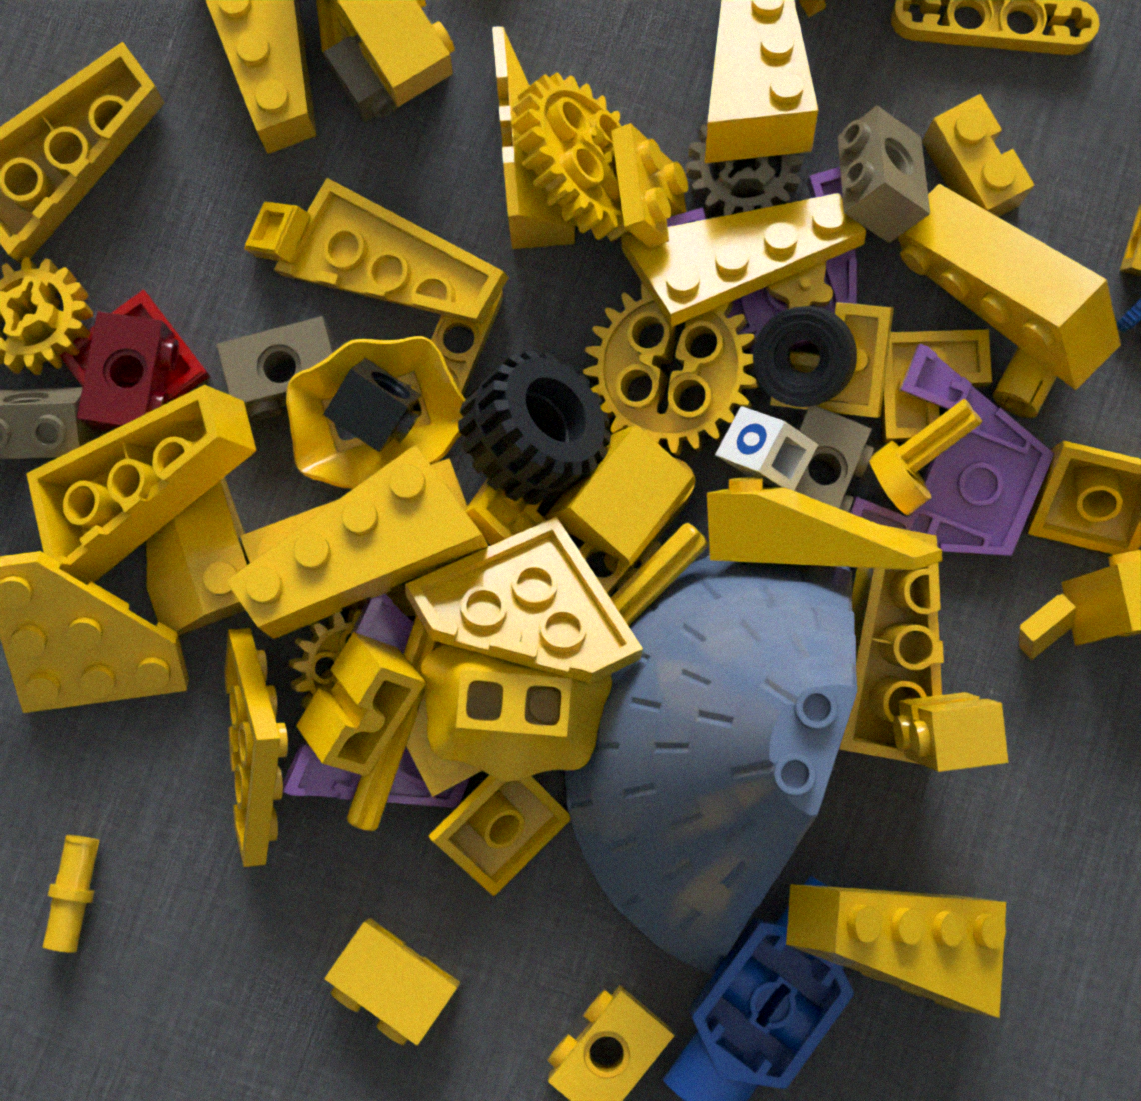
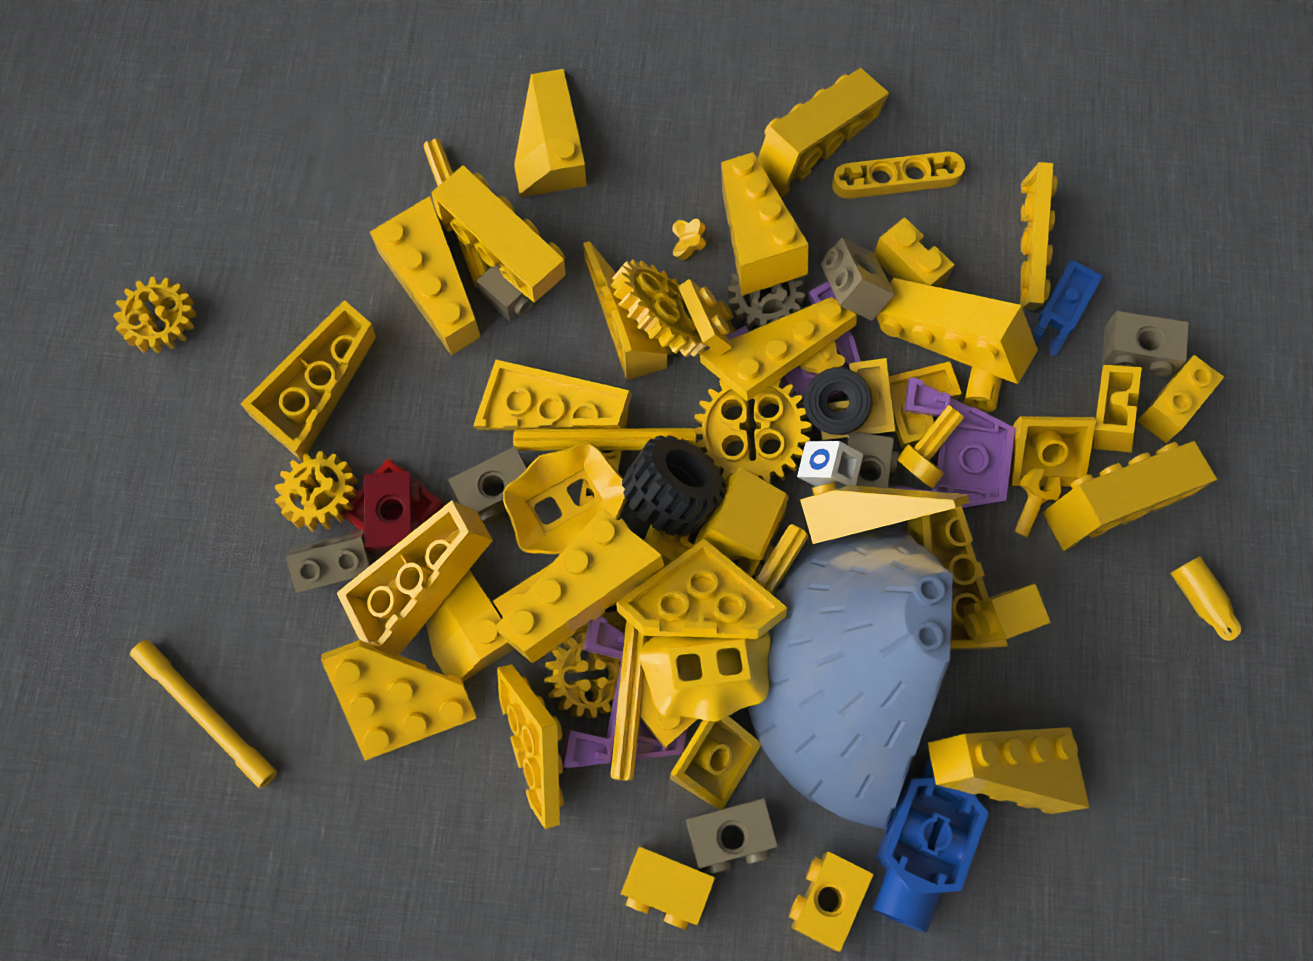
camera: 15 degrees left, 10 degrees down
(71, 893) = (425, 879): yellow pin -> none
(277, 231) = (470, 401): yellow tile -> none
(364, 707) = (605, 694): yellow brick -> none
(373, 406) = (564, 494): black brick -> none
(444, 330) = (601, 438): none -> yellow axle
(461, 927) = (749, 818): none -> dark tan brick
(655, 51) = (689, 238): none -> yellow piece
(1046, 626) = (1042, 540): yellow tile -> none
(1056, 562) = (1036, 497): none -> yellow bar

